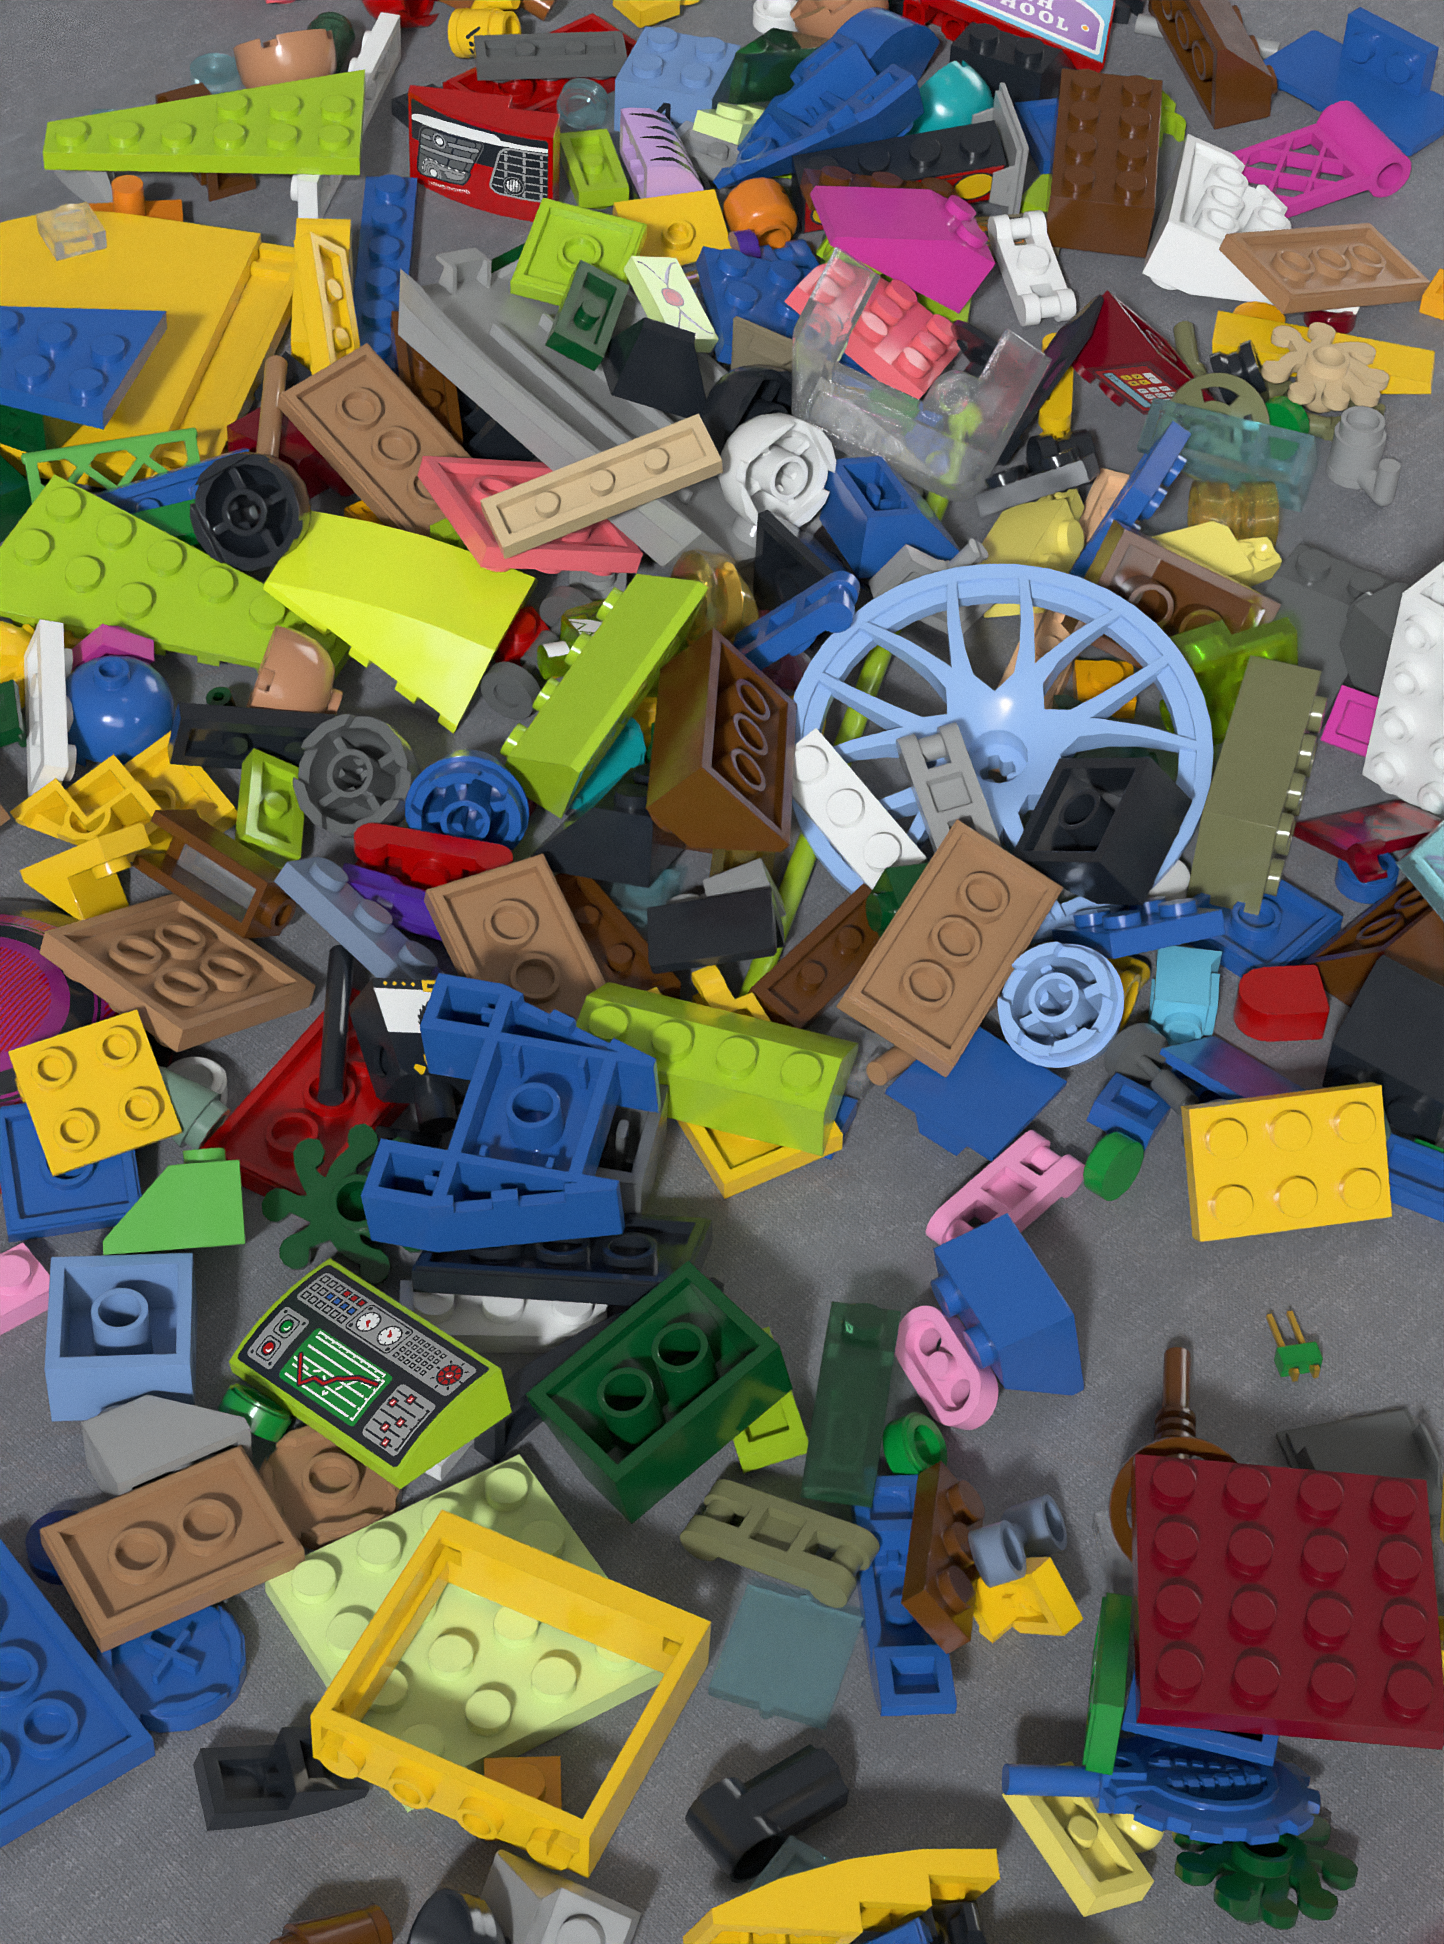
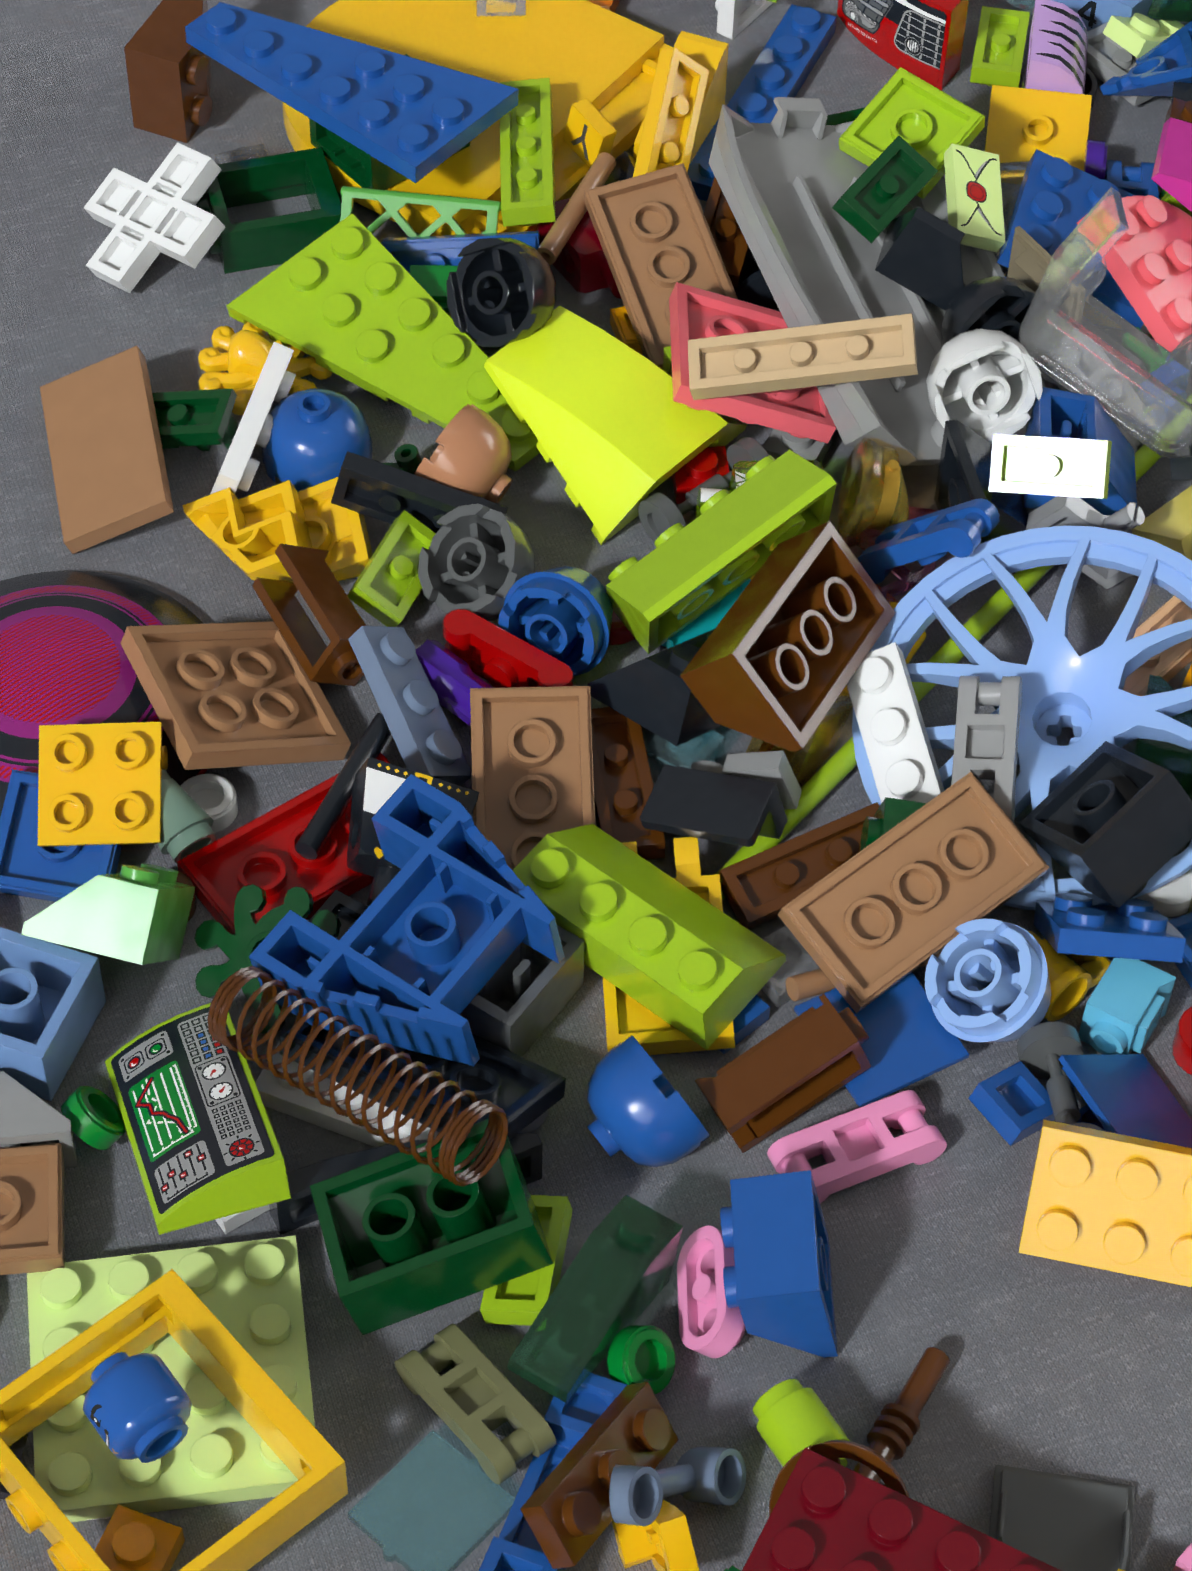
camera: 25 degrees right, 5 degrees up
(86, 876) = (212, 584): yellow slope -> none
(112, 641) = (340, 379): dark pink plate -> none
(199, 382) = (528, 156): none -> lime plate
(244, 343) = (588, 131): none -> yellow tile
(325, 1488) = (110, 1209): medium nougat tile -> none
(489, 1639) = (137, 1406): none -> blue head
(689, 1269) = (455, 1129): none -> reddish brown piece
(764, 209) = (1129, 128): orange head -> none
(795, 1224) = (640, 1109): none -> blue cylinder
(885, 524) = (1050, 466): none -> plate
(914, 1149) = (787, 1073): none -> reddish brown window
(1087, 1456) = (794, 1419): none -> lime brick
(1113, 1166) = (971, 1150): green tile -> none
(1295, 1358) = (1054, 1399): green piece -> none

